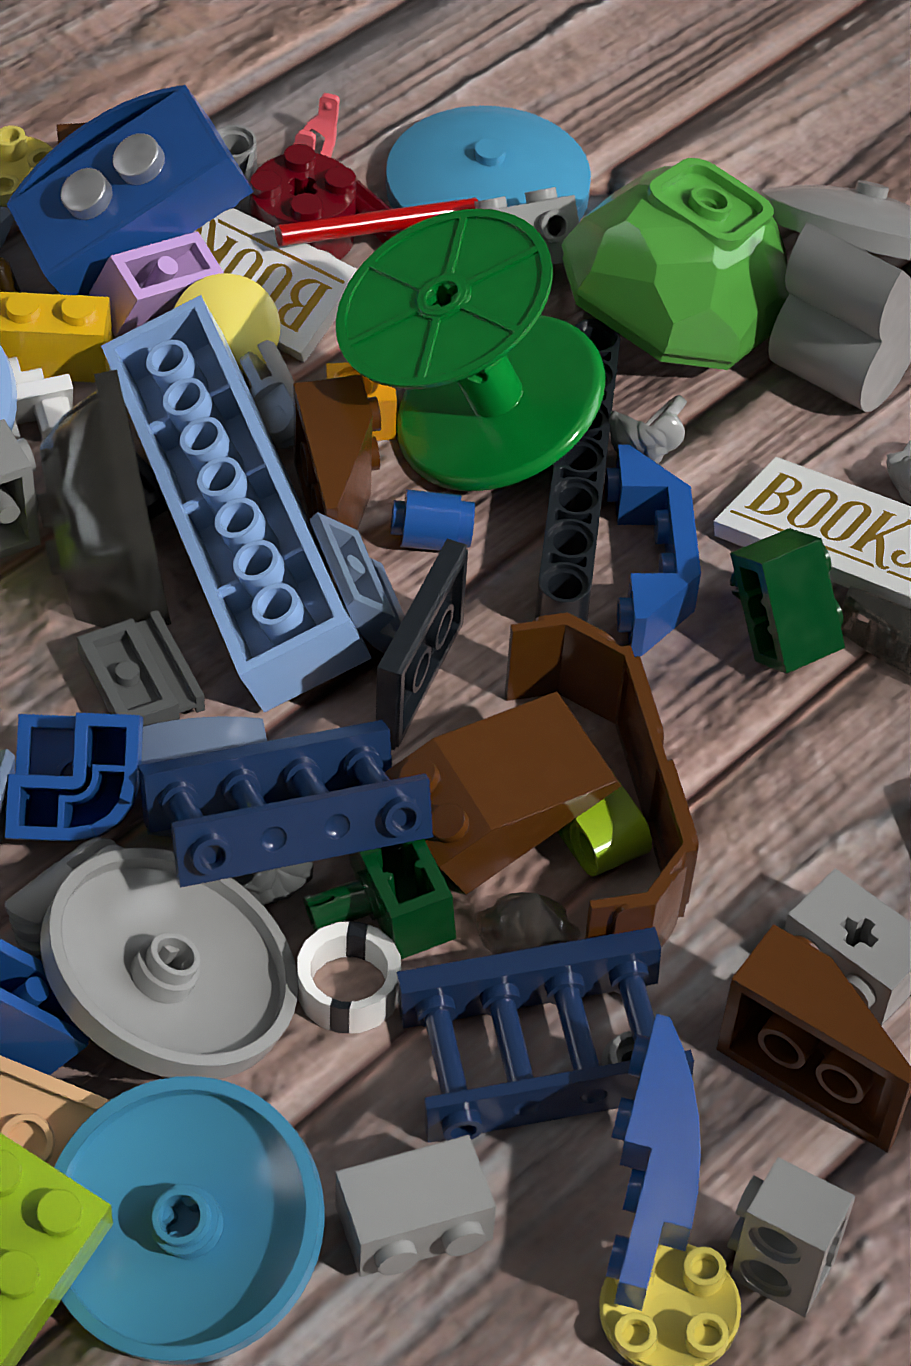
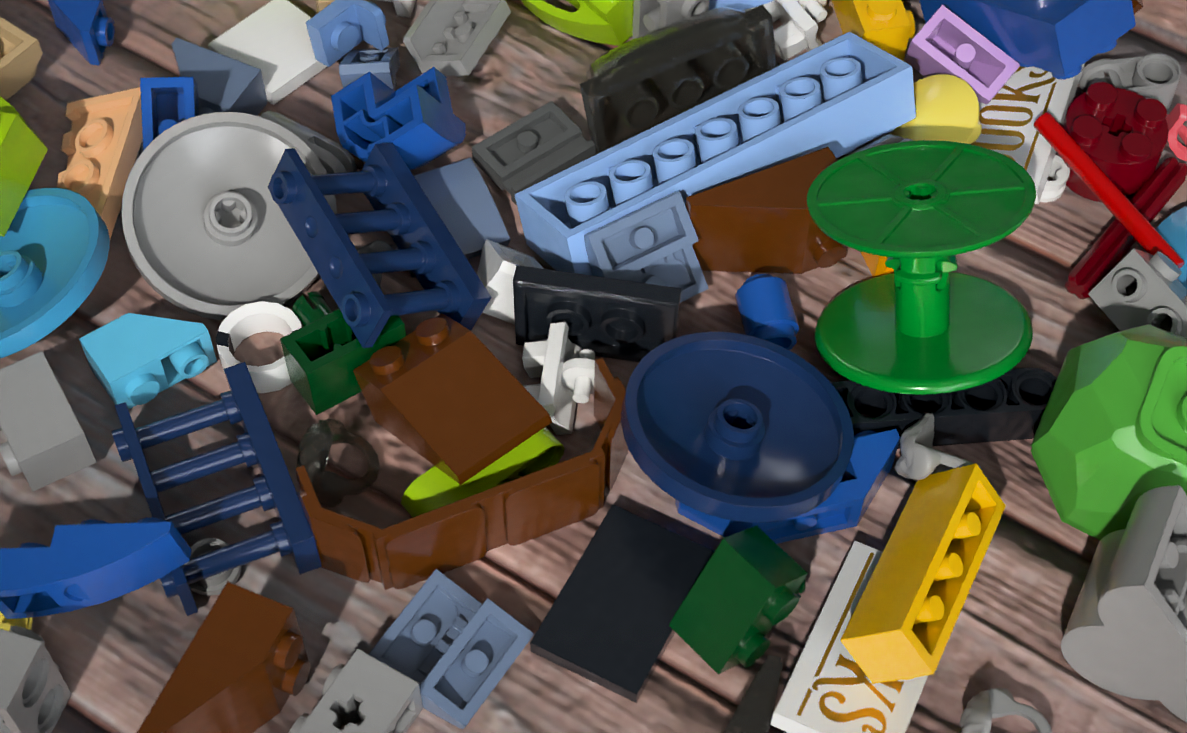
camera: 80 degrees right, 5 degrees up
(335, 706) = (497, 274): none -> white slope
(338, 1098) = (146, 355): none -> medium azure slope
(467, 695) = (565, 375): none -> white hips
(615, 540) = (736, 427): none -> dark blue dish
(745, 713) = (620, 602): none -> black tile
(769, 860) = (452, 647): none -> sand blue slope
(791, 458) = (924, 575): none -> yellow brick

